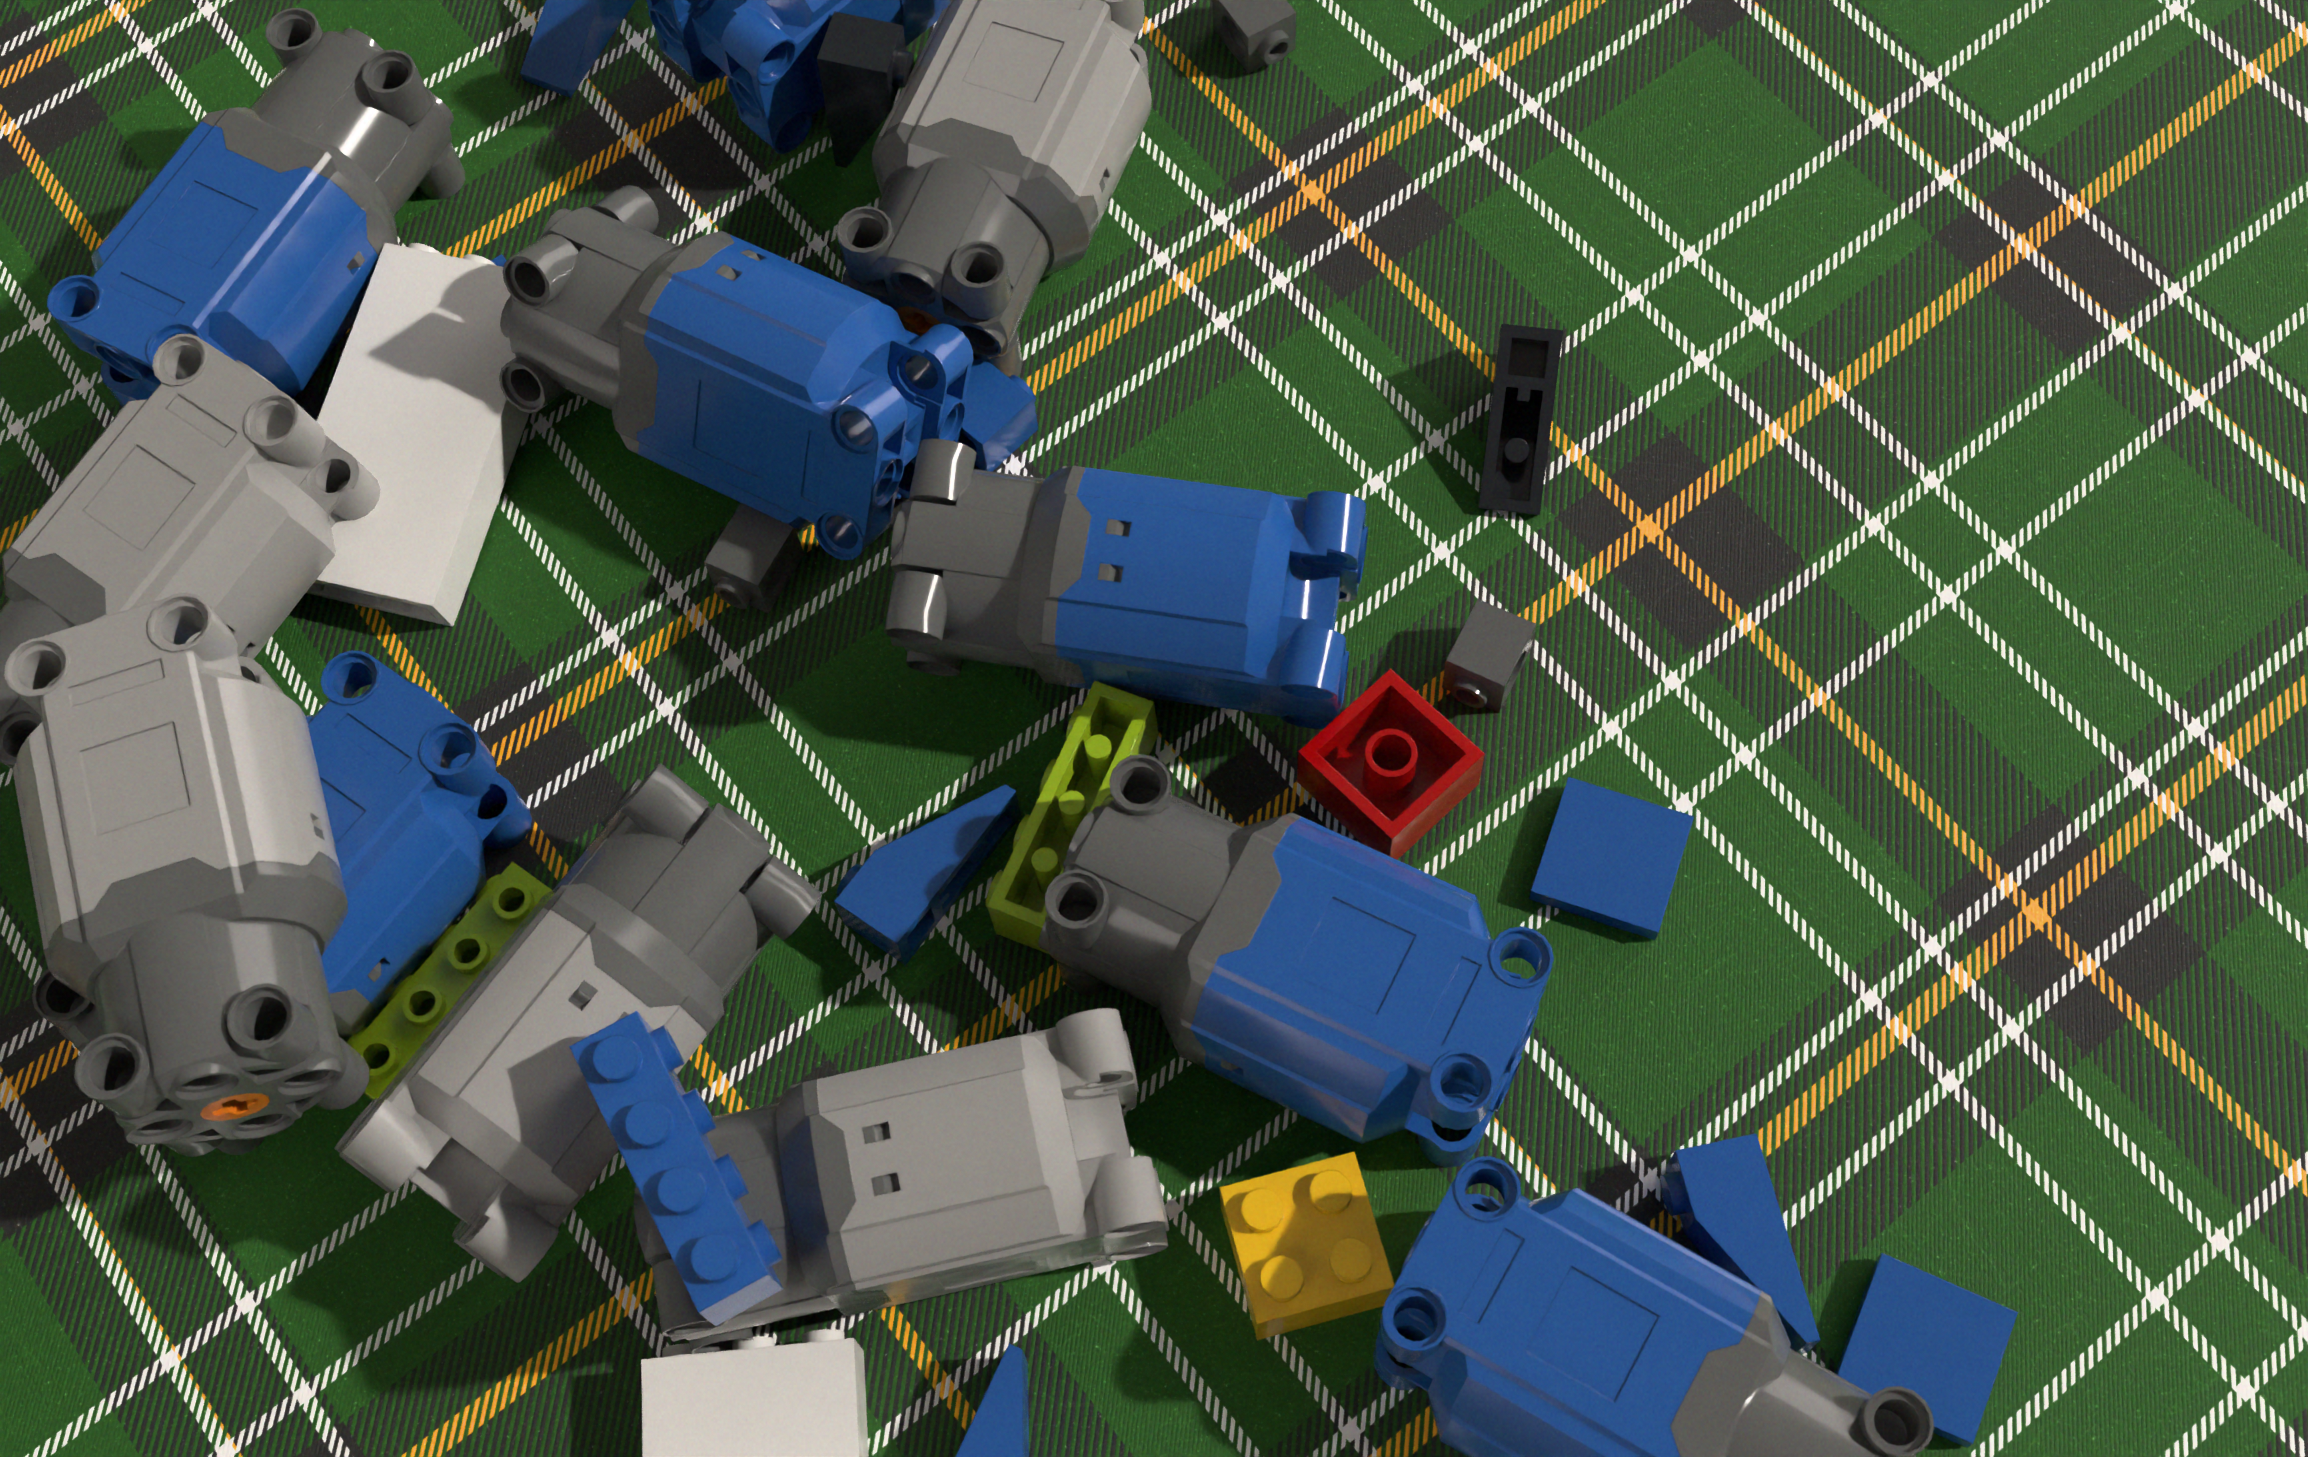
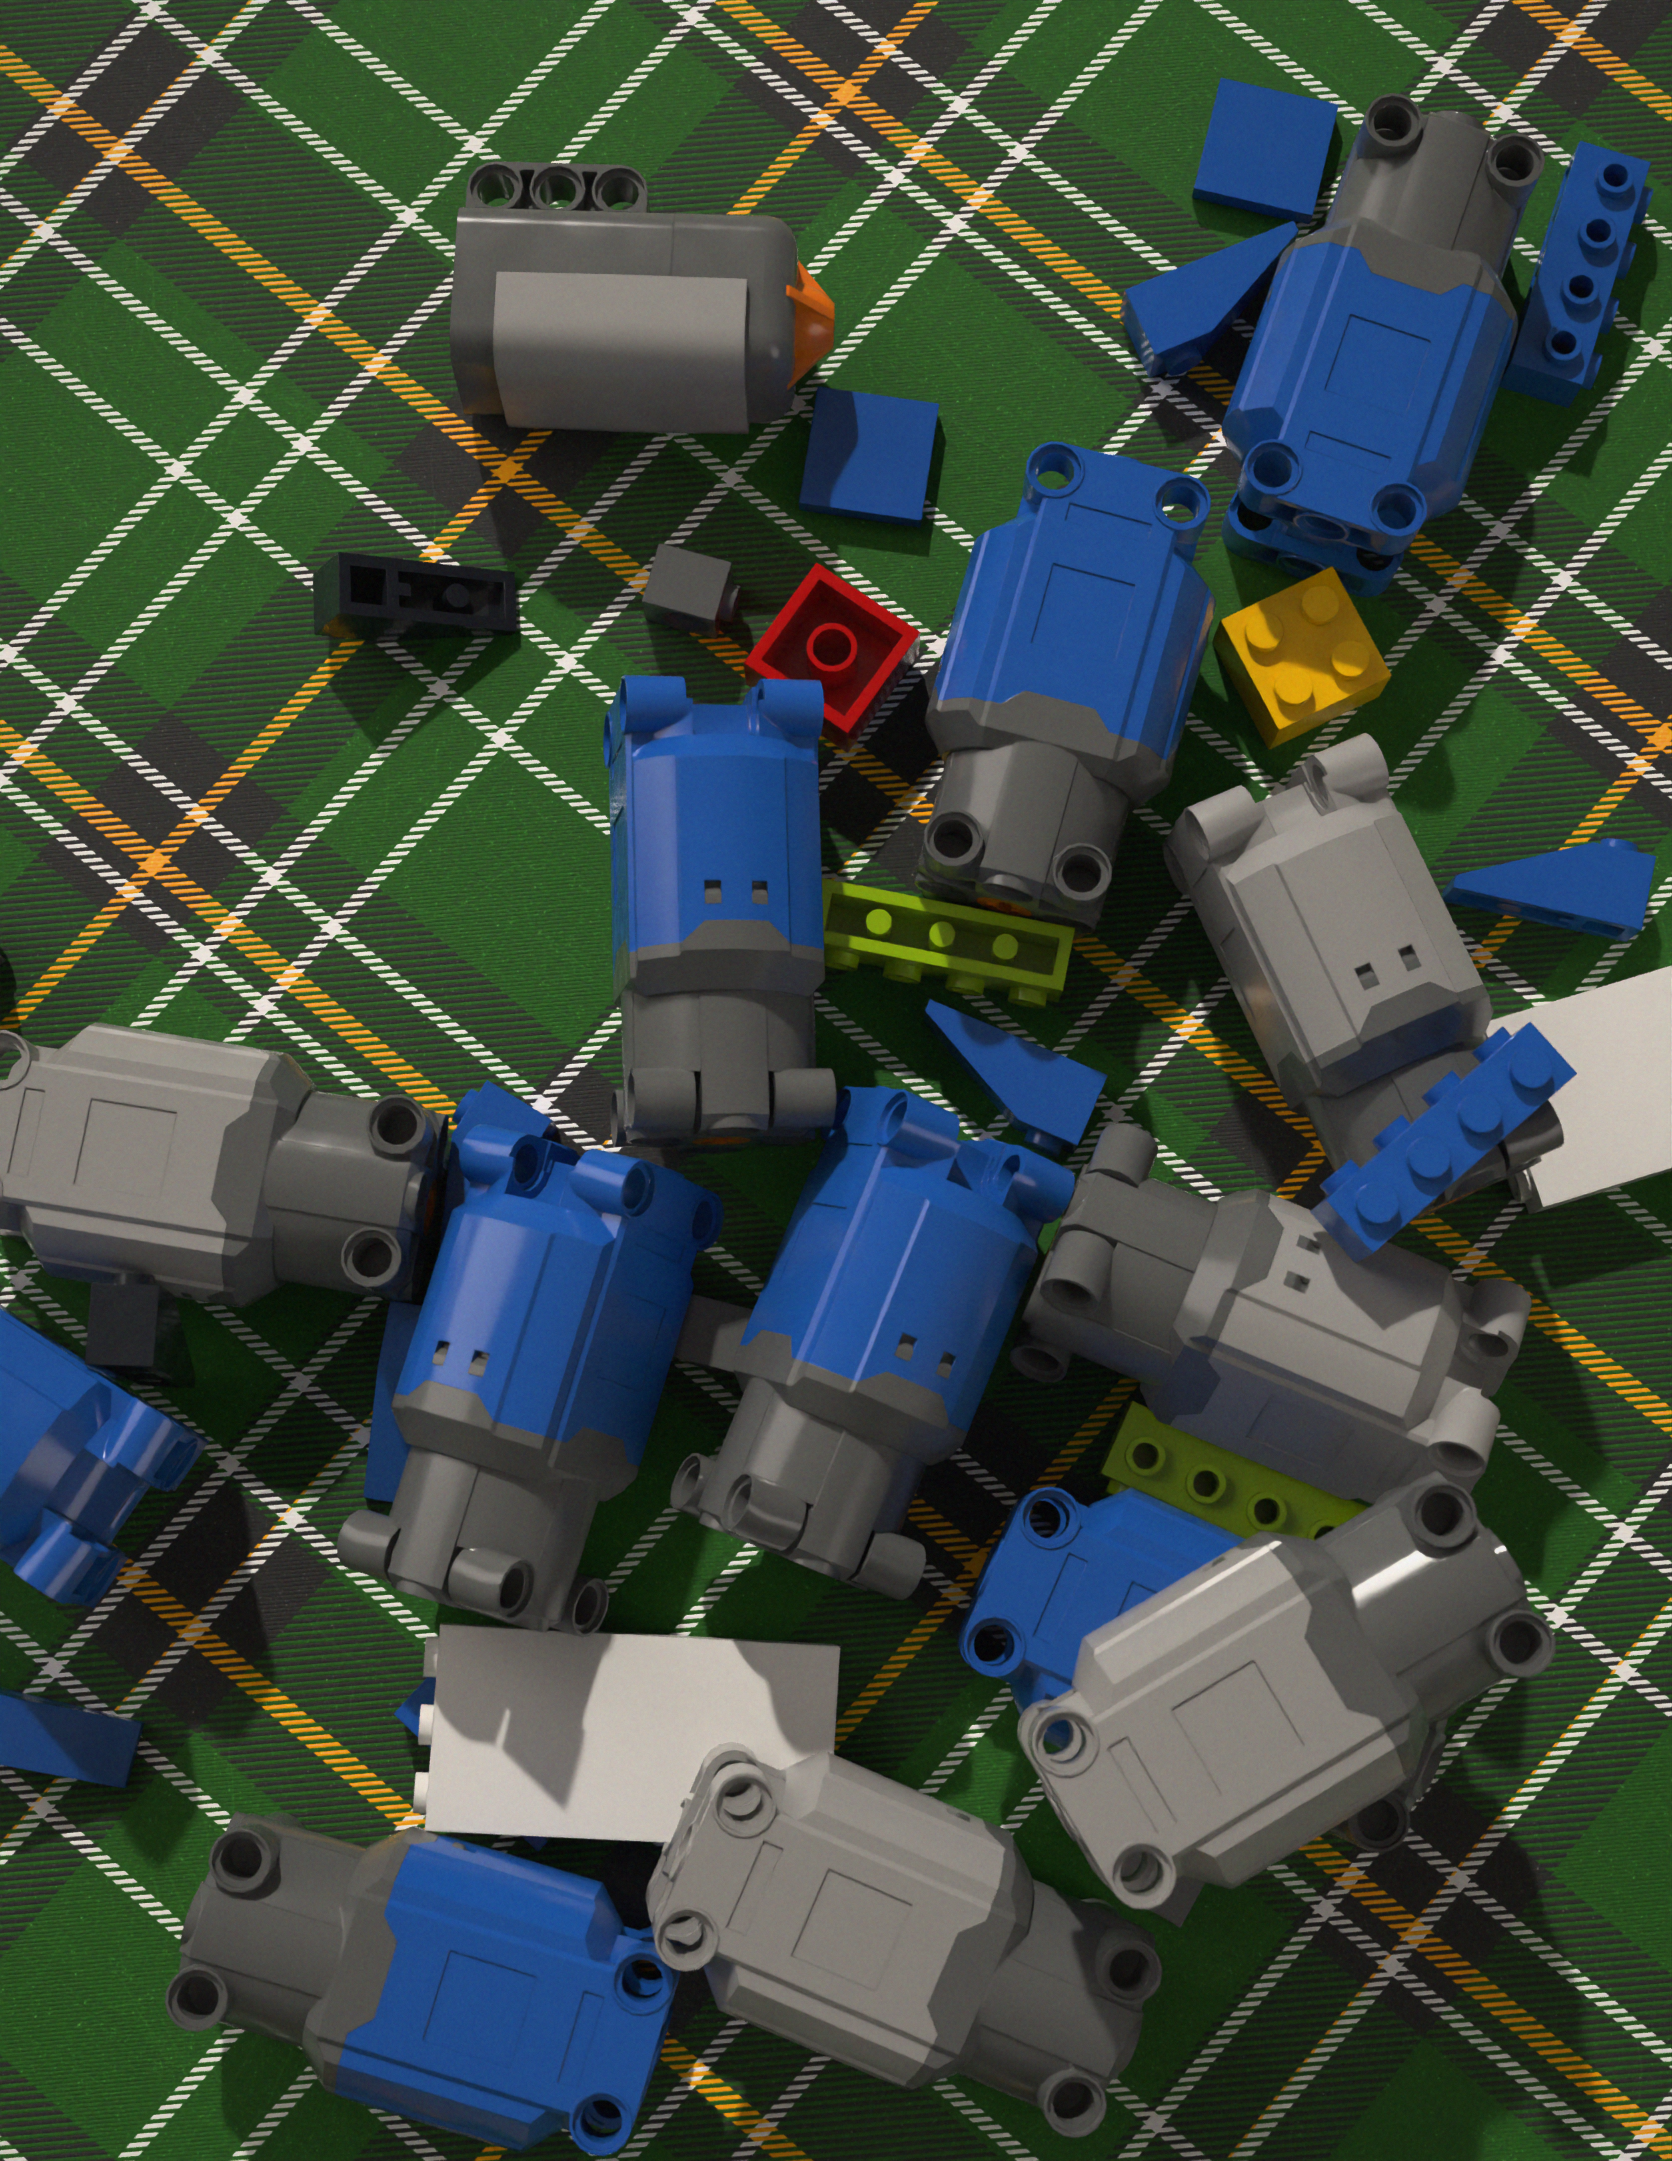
camera: 105 degrees left, 15 degrees up
(680, 652) = (873, 1337): none -> piece
(1790, 614) = (625, 311): none -> piece

